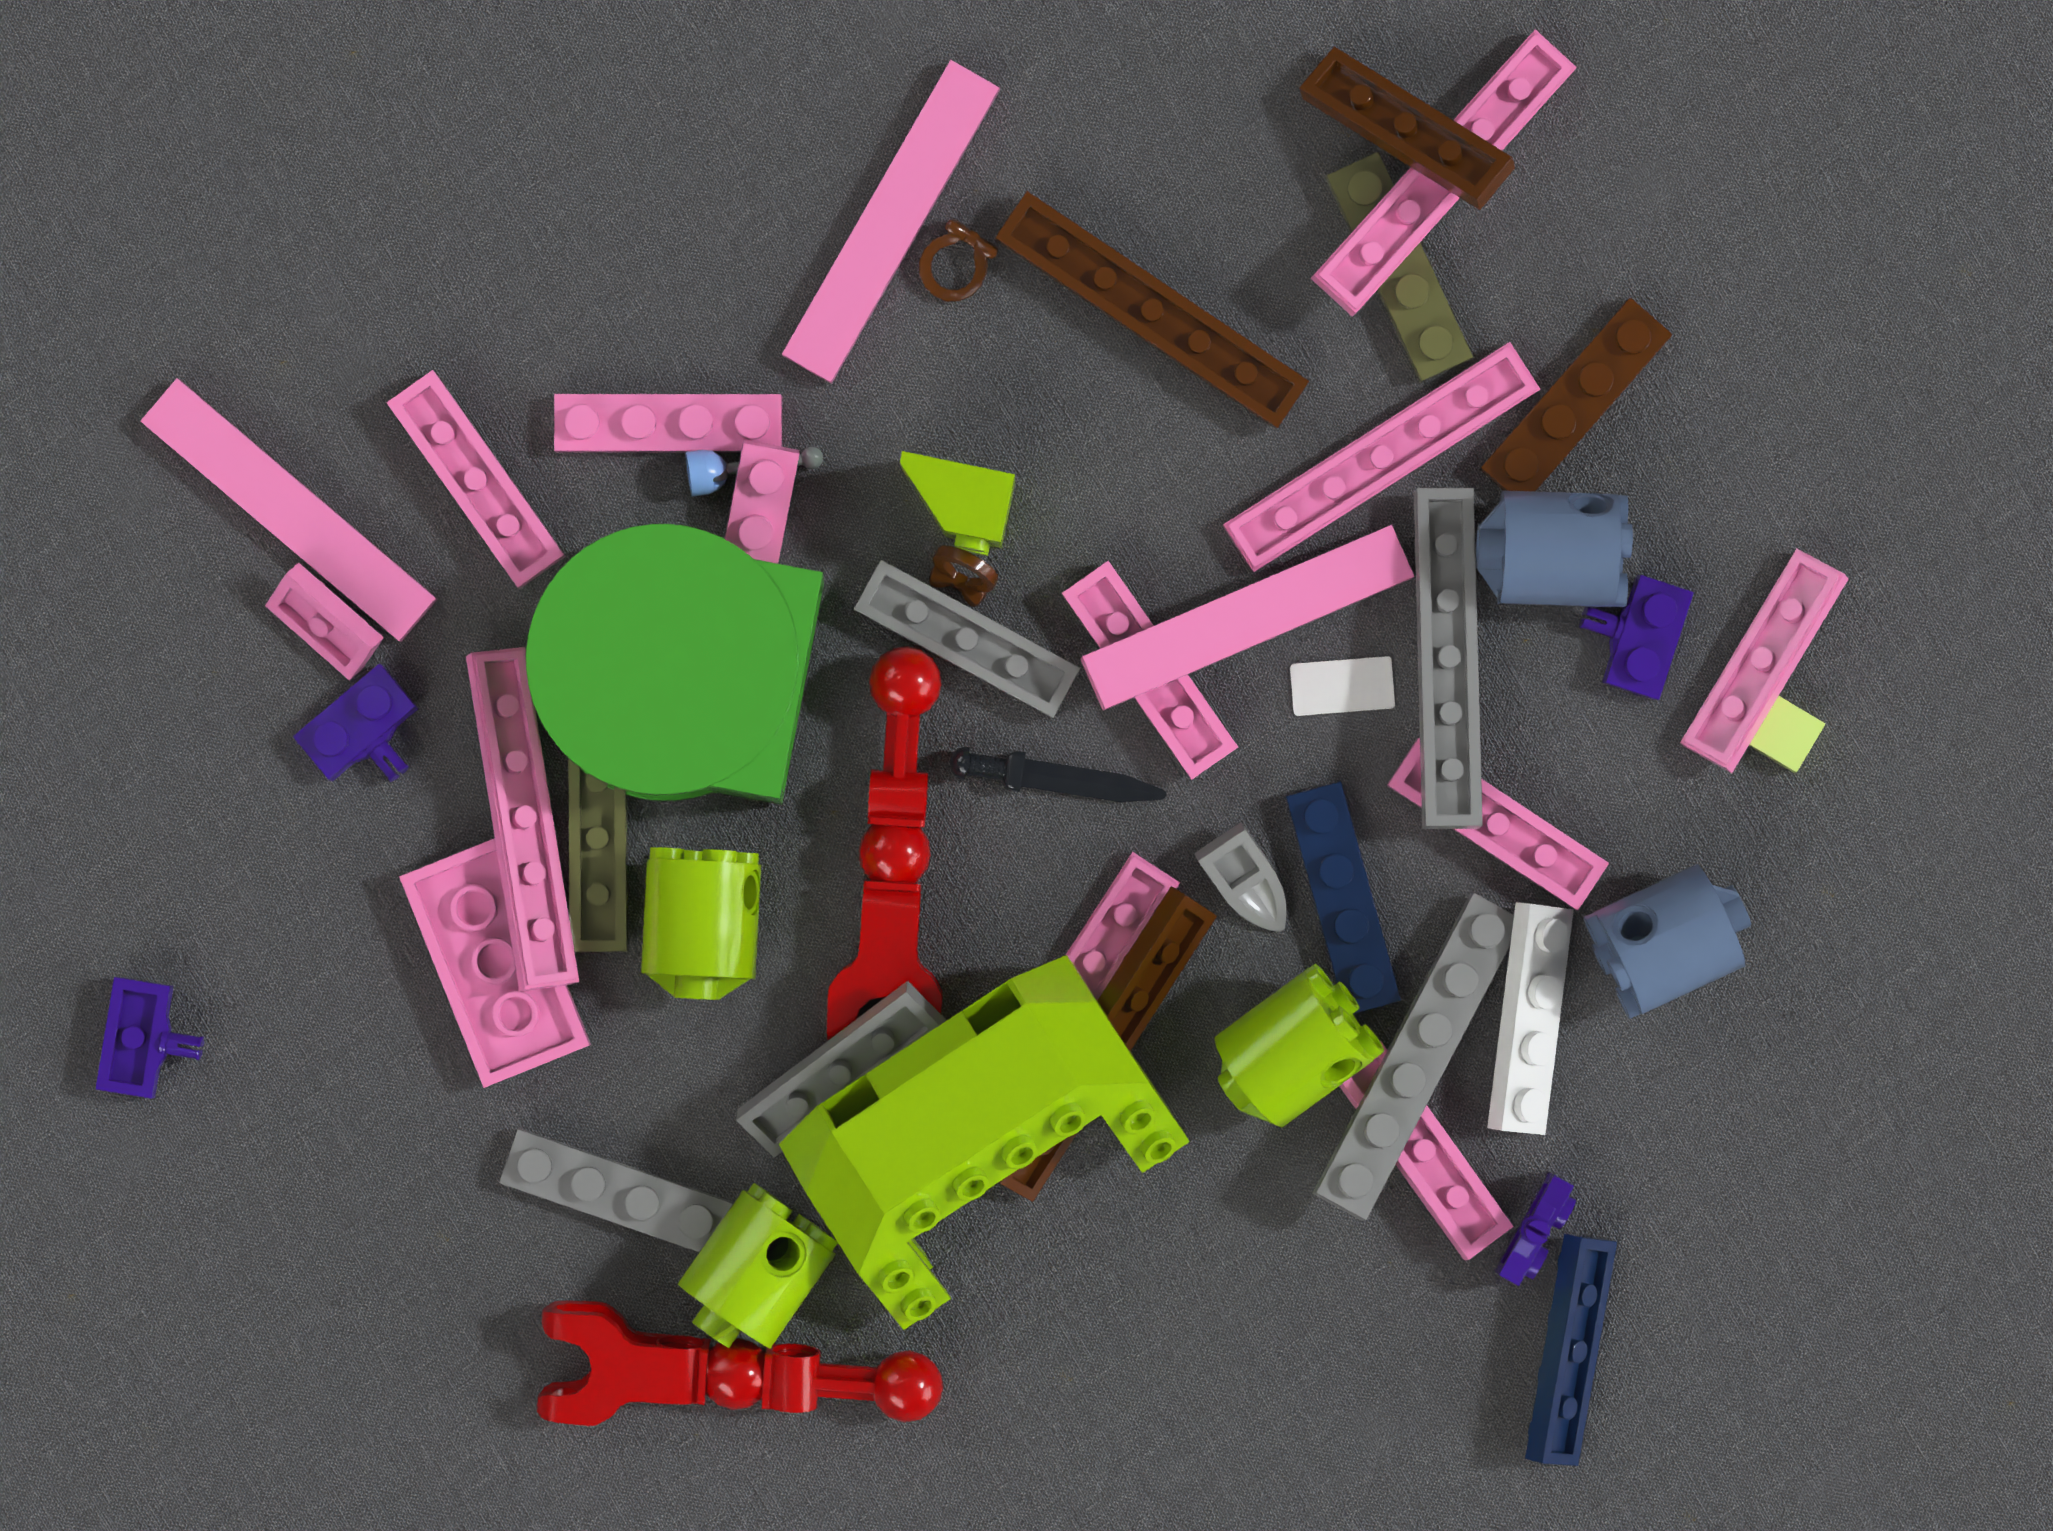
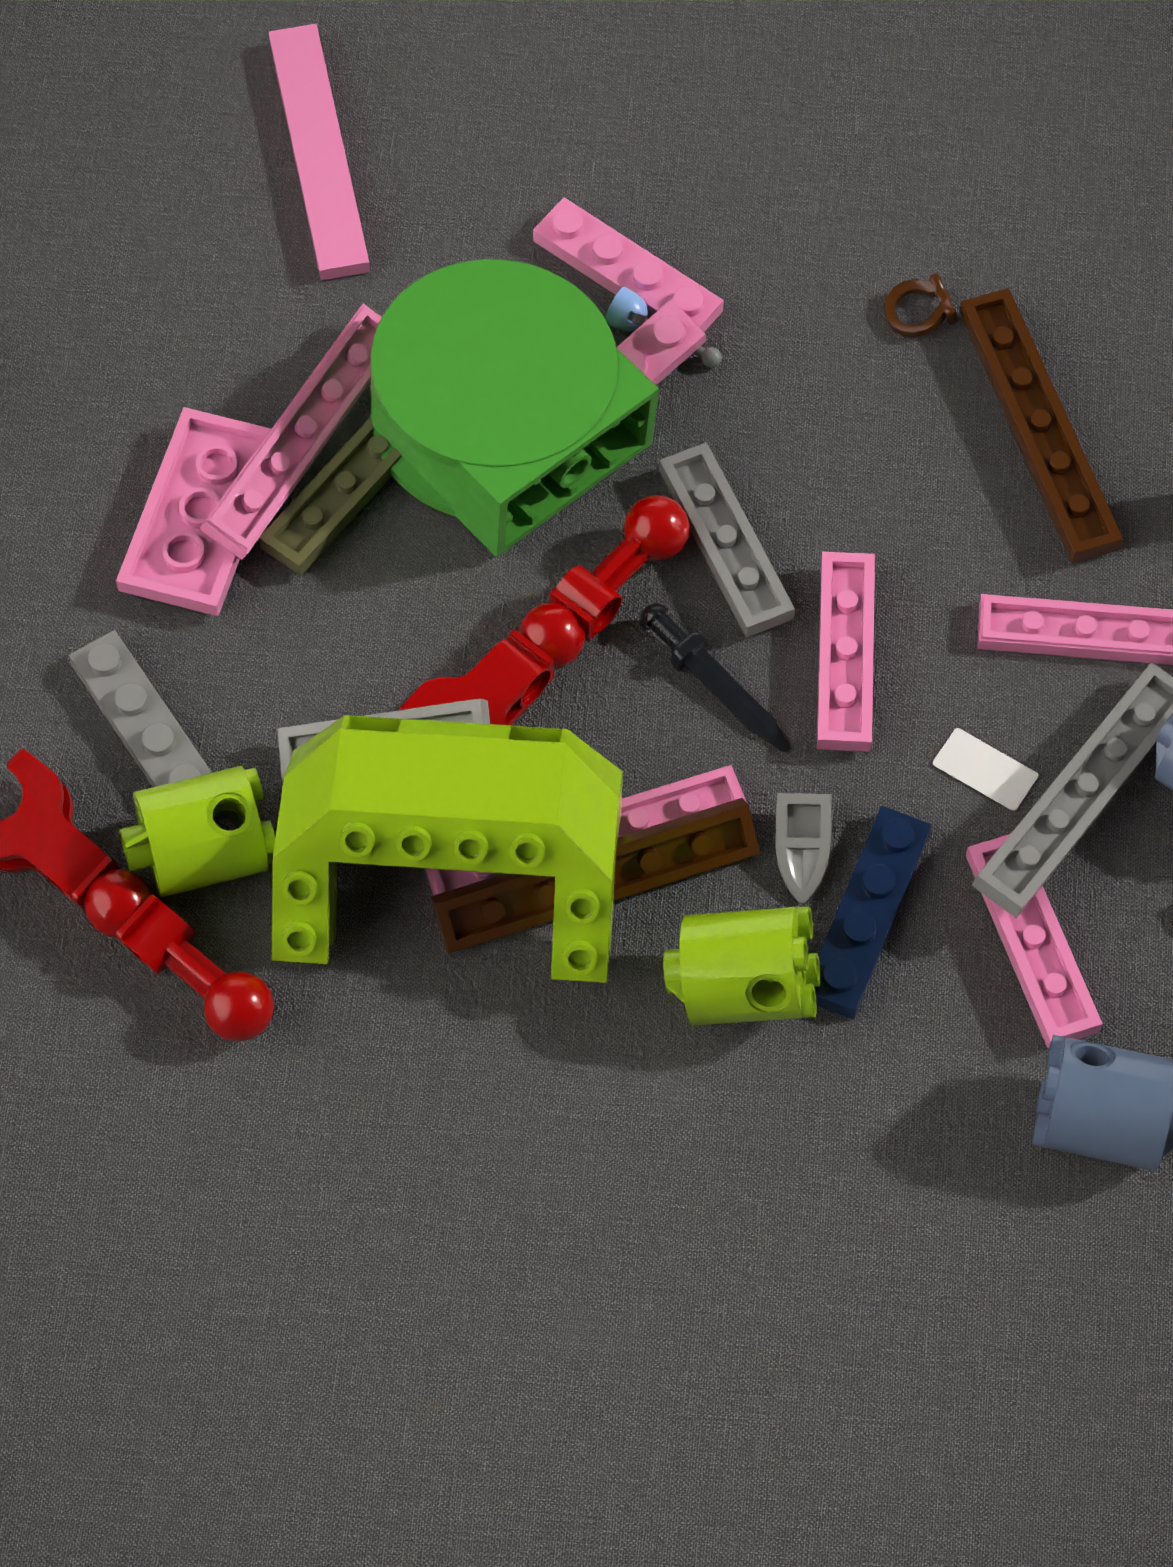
camera: 35 degrees right, 25 degrees down
(324, 621) = (279, 223): bright pink plate -> none
(359, 726) = (243, 306): dark purple plate -> none
(476, 479) = (463, 194): bright pink plate -> none
(701, 921) = (372, 571): lime cylinder -> none
(891, 221) = (892, 253): bright pink tile -> none
(945, 575) = (745, 491): reddish brown piece -> none
(963, 499) = (806, 435): lime slope -> none
(1247, 617) = (950, 660): bright pink tile -> none
(1417, 1058) = (835, 1054): light grey plate -> none
(1442, 1177) = (785, 1134): bright pink plate -> none
(1525, 1251) = (831, 1252): dark purple plate -> none
(1530, 1018) = (949, 1097): white plate -> none
(1570, 1350) = (786, 1372): dark blue plate -> none

